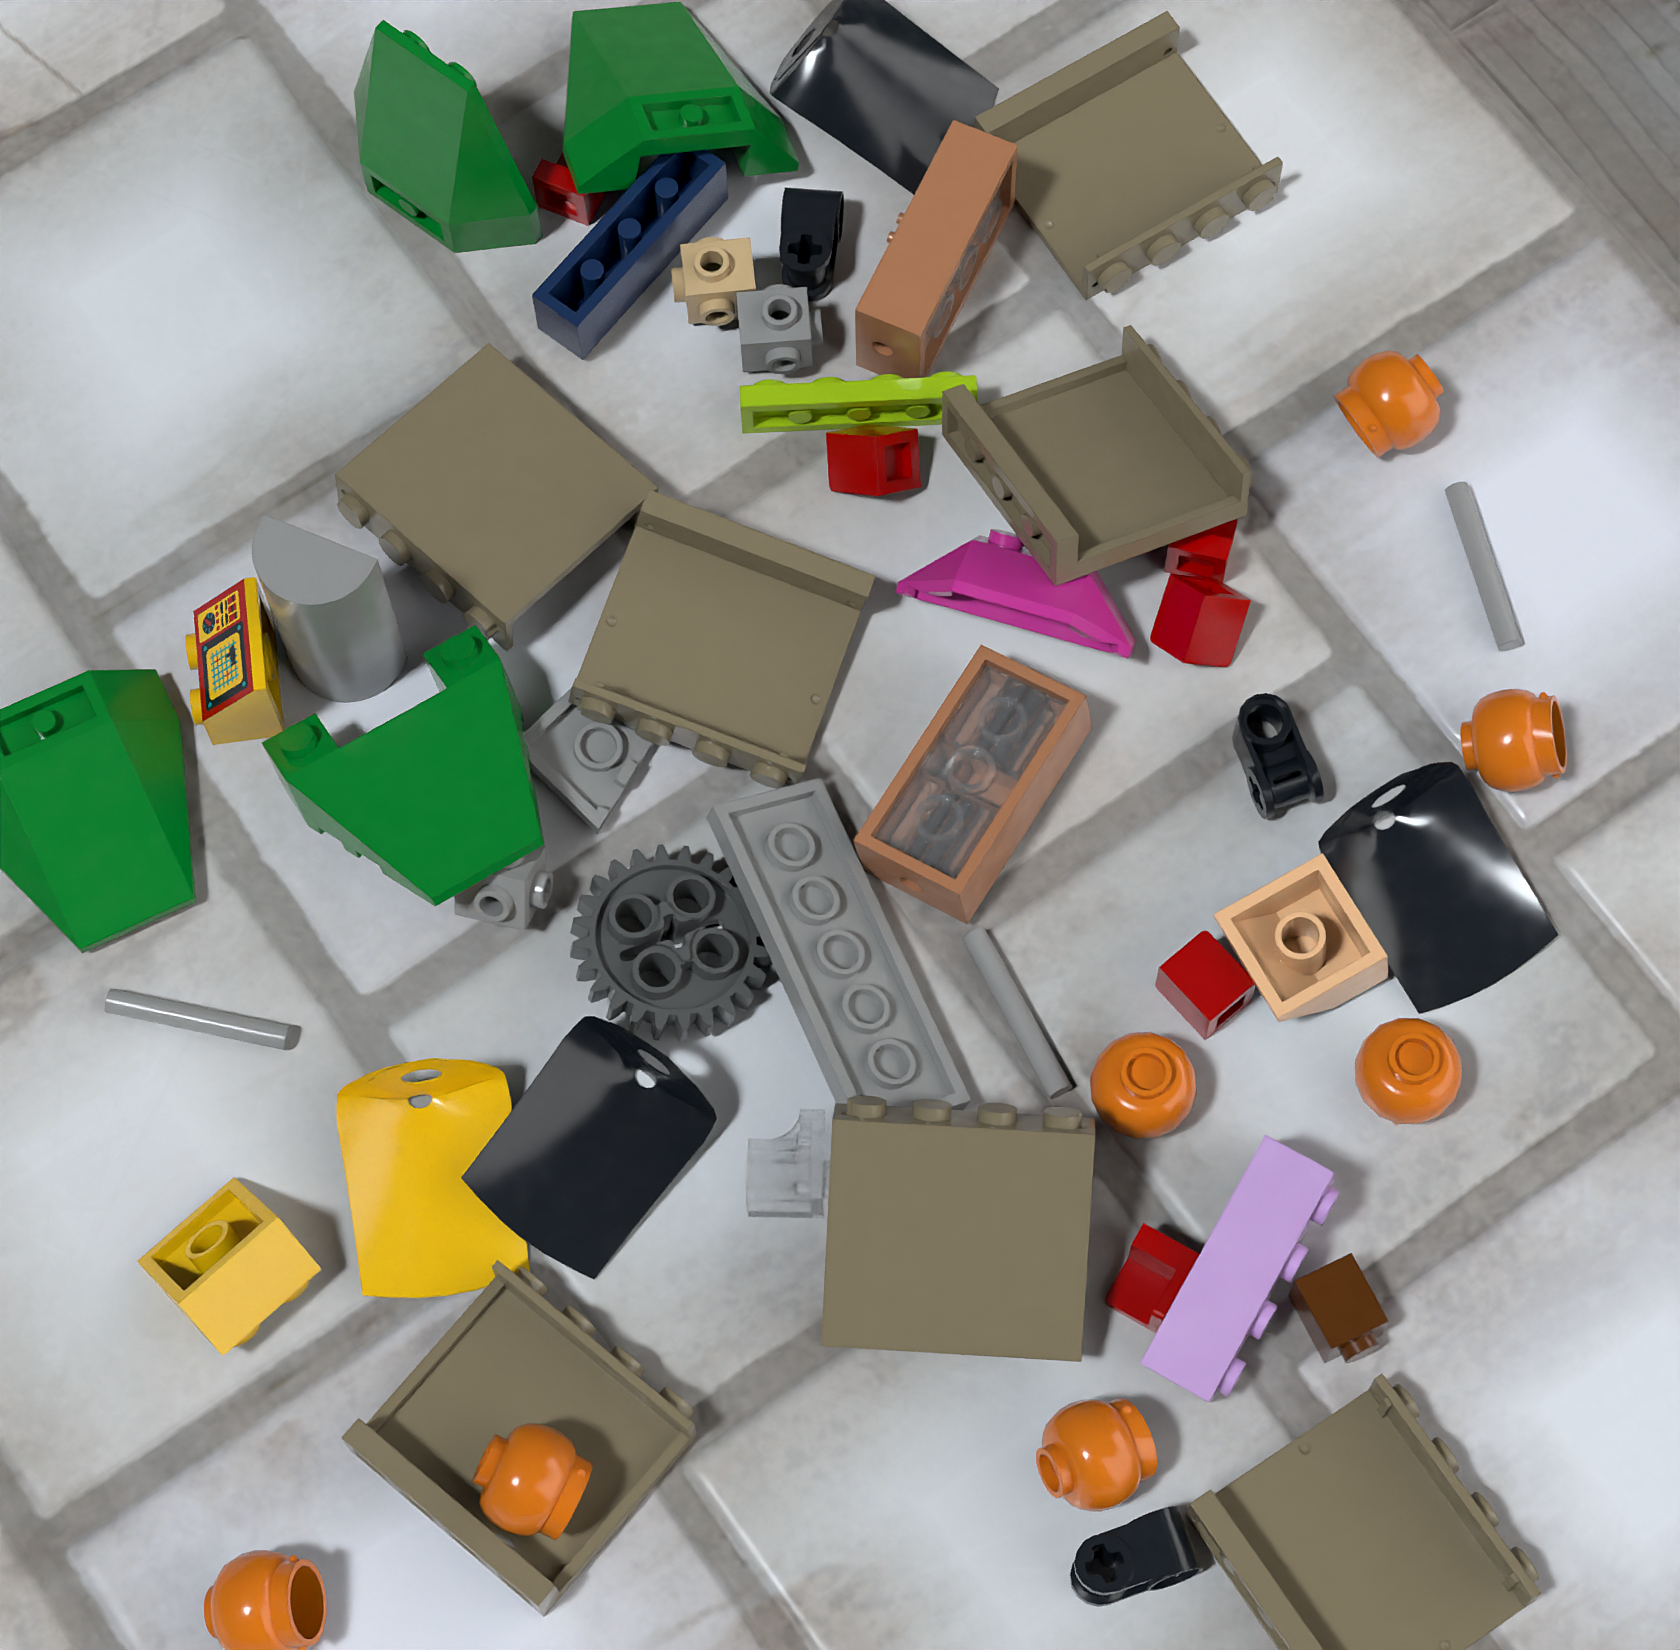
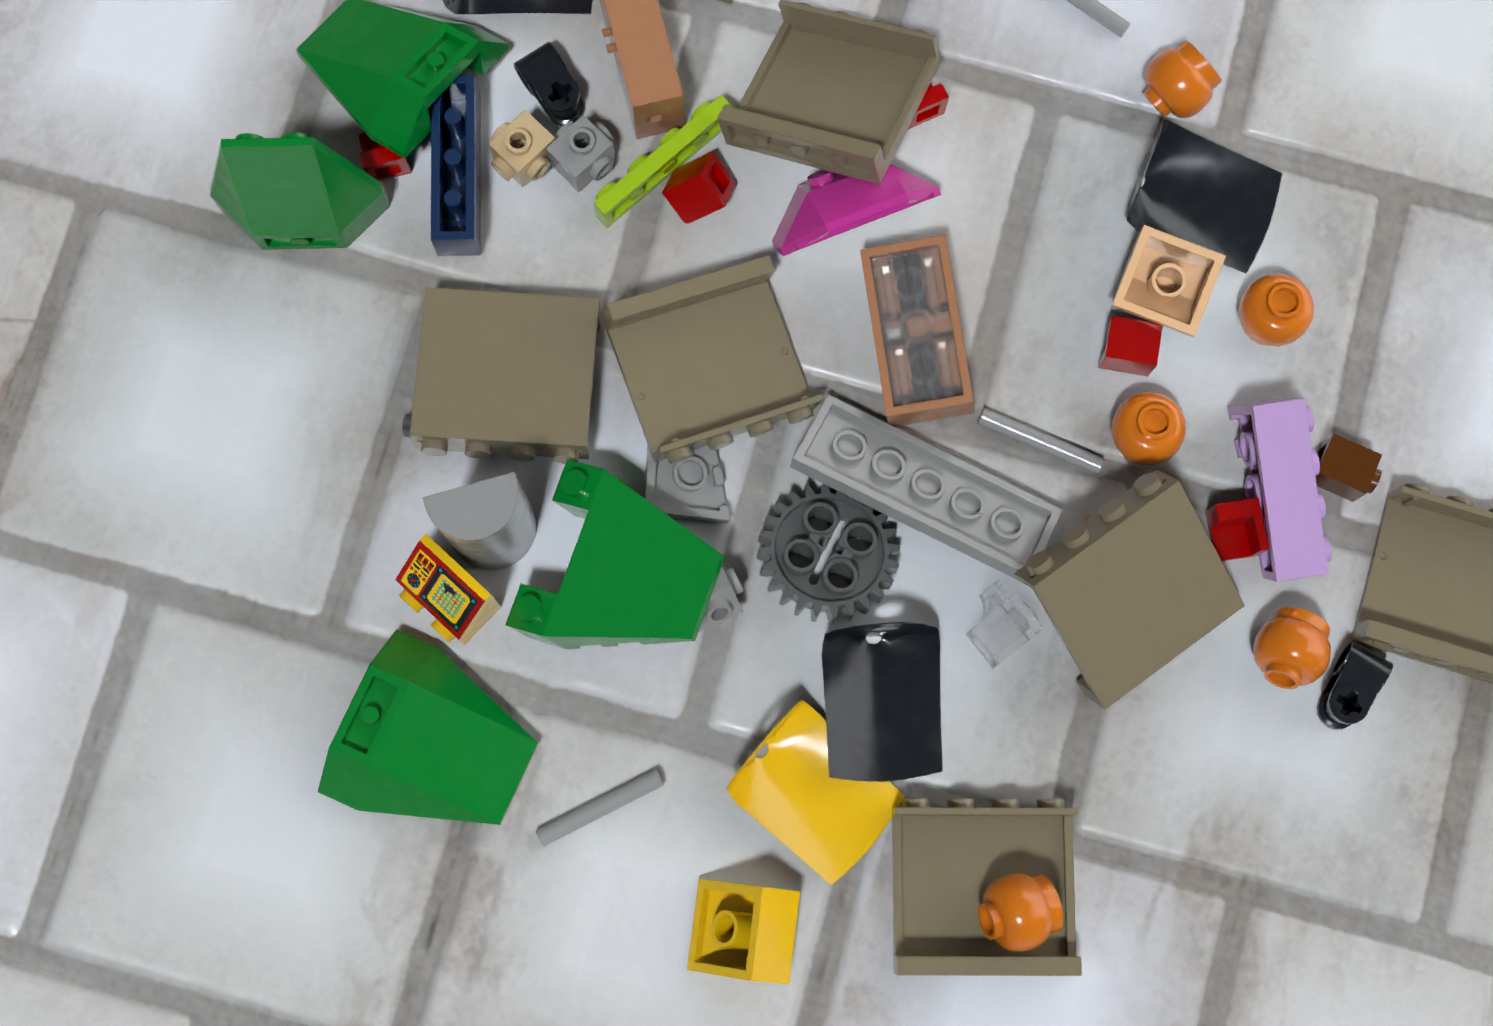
camera: 45 degrees left, 10 degrees up
(1199, 620) = (955, 143): red panel -> none
(1277, 767) = (1062, 191): black piece -> none

